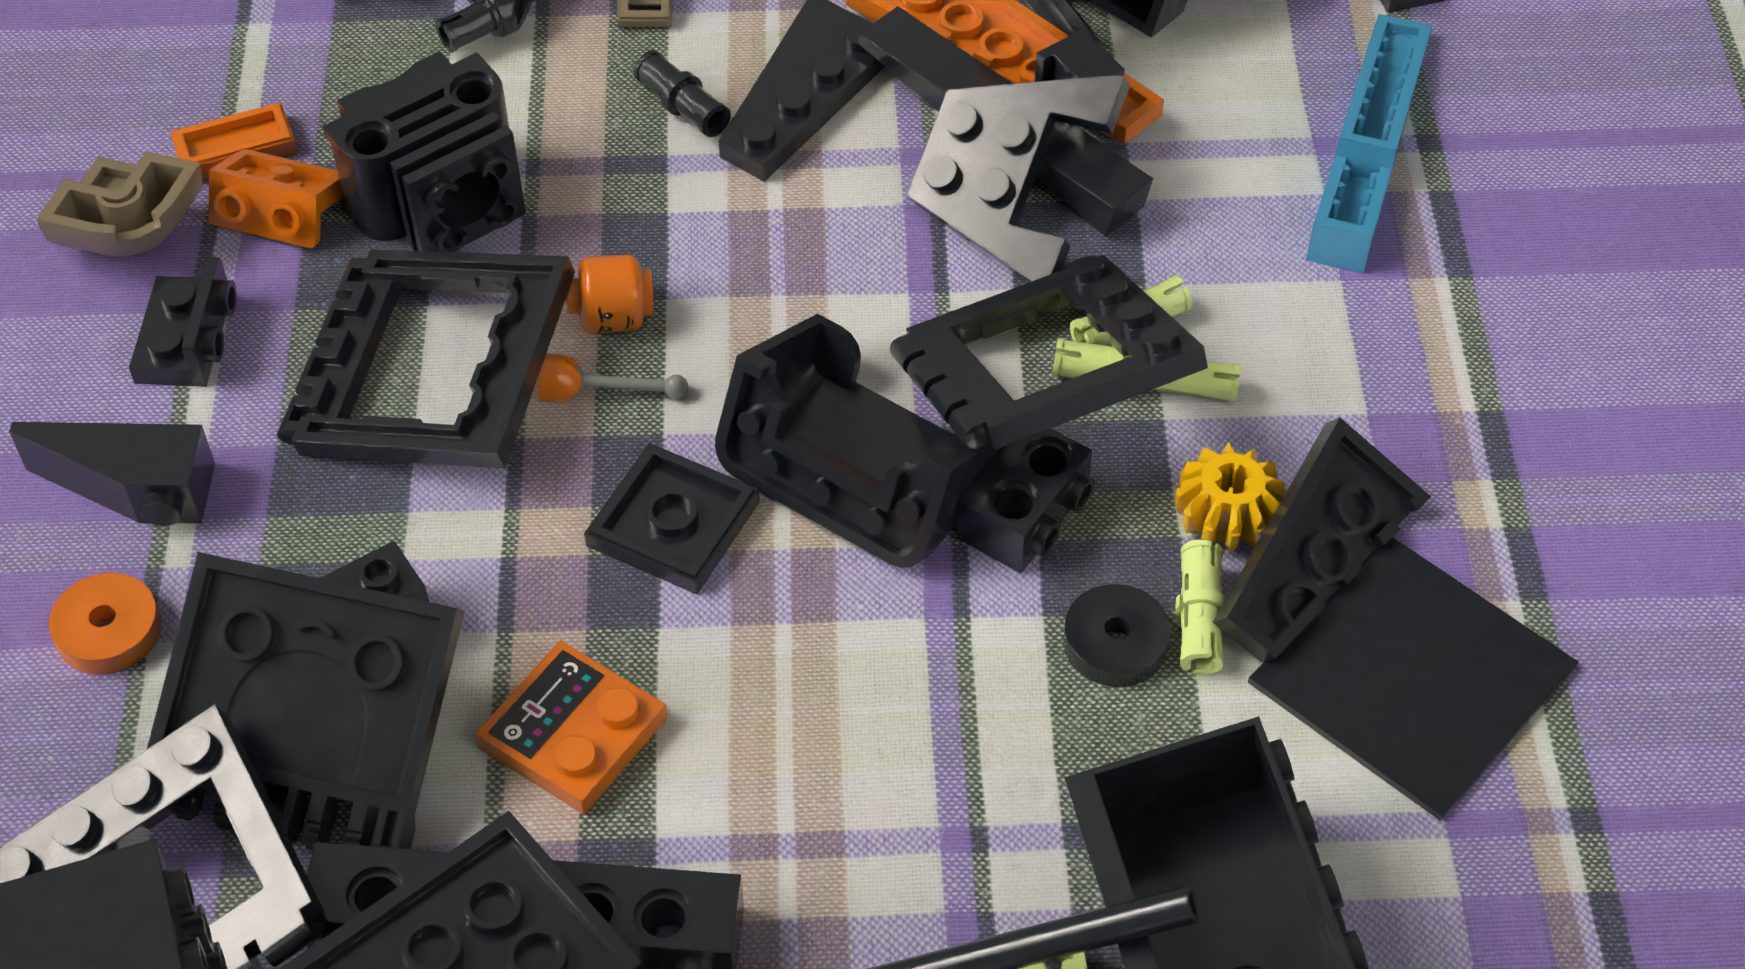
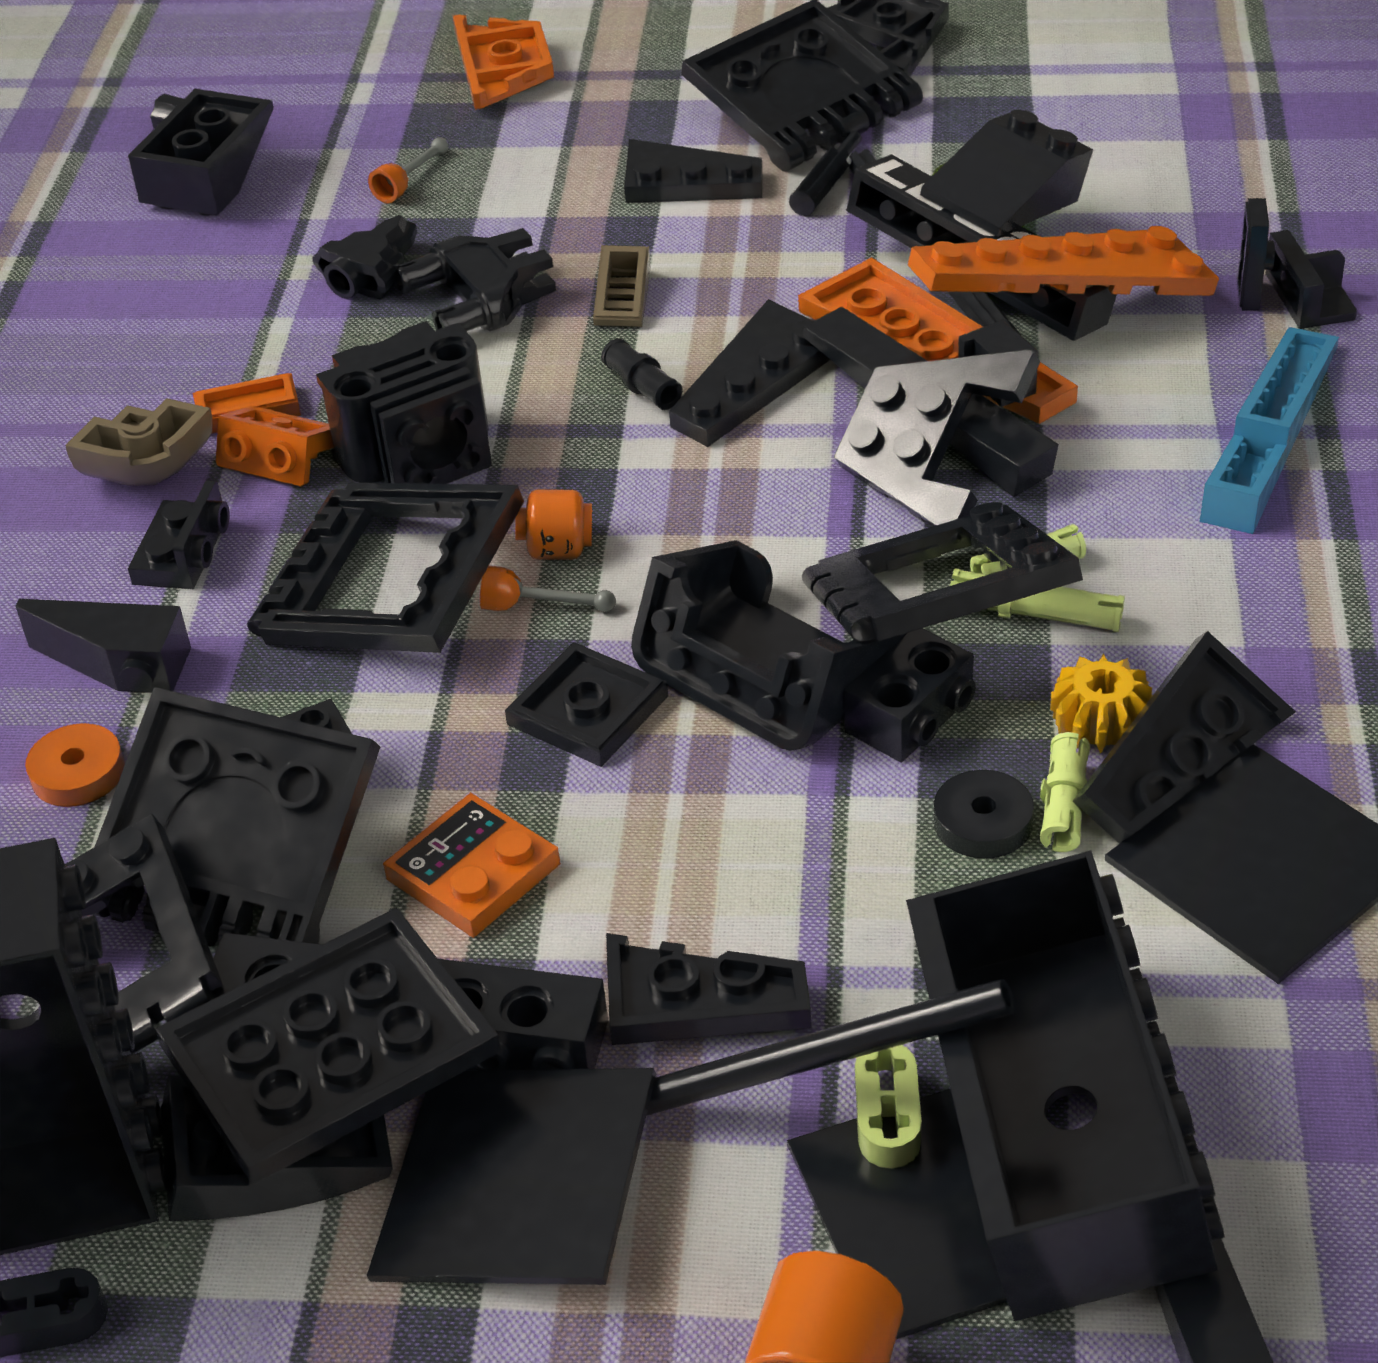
camera: 10 degrees right, 10 degrees down
(834, 877) = (694, 996): none -> black wing

